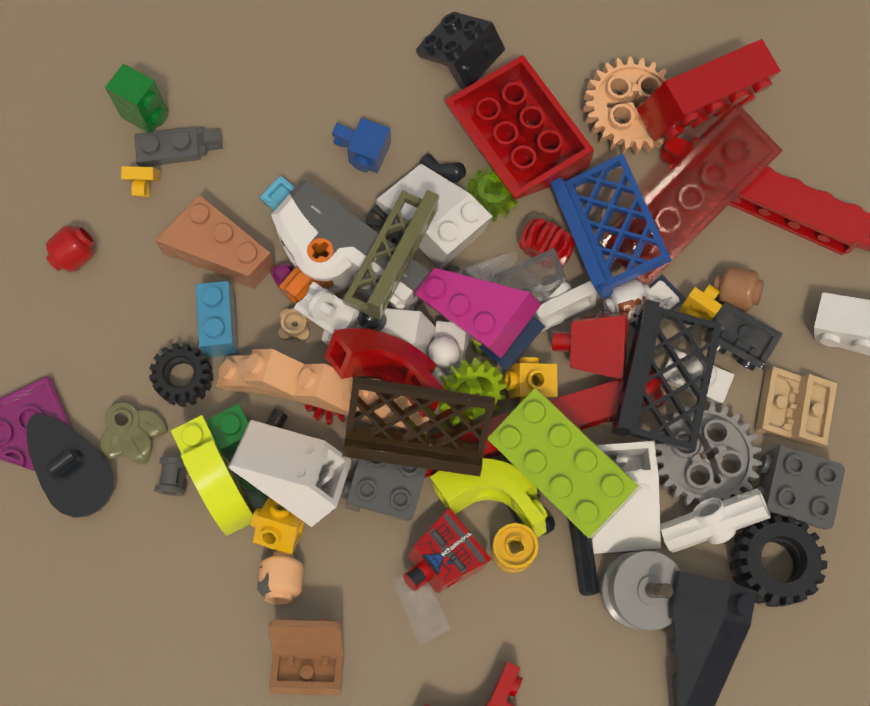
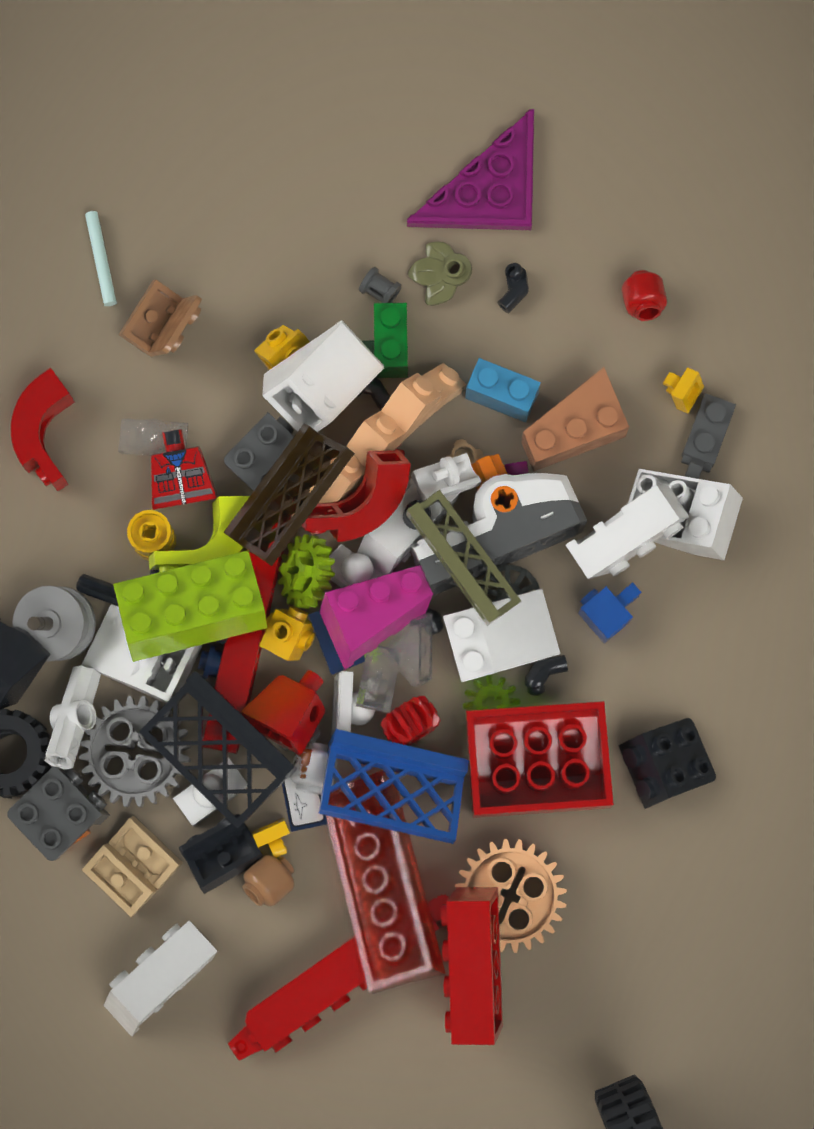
camera: 120 degrees right, 5 degrees up
(68, 467) = (436, 207): black shield -> none
(114, 359) = (517, 287): none -> black arm
(137, 98) = (763, 418): green brick -> none
(181, 355) = (468, 318): black tyre -> none
(212, 476) = (358, 310): neon yellow arch -> none
(250, 132) = (710, 508): none -> white slope
(276, 193) = (598, 508): medium azure tile -> none
(280, 578) = (240, 333): light nougat head -> none
(292, 148) = (629, 532): none -> white wedge
(596, 432) = (210, 662): none -> dark blue plate

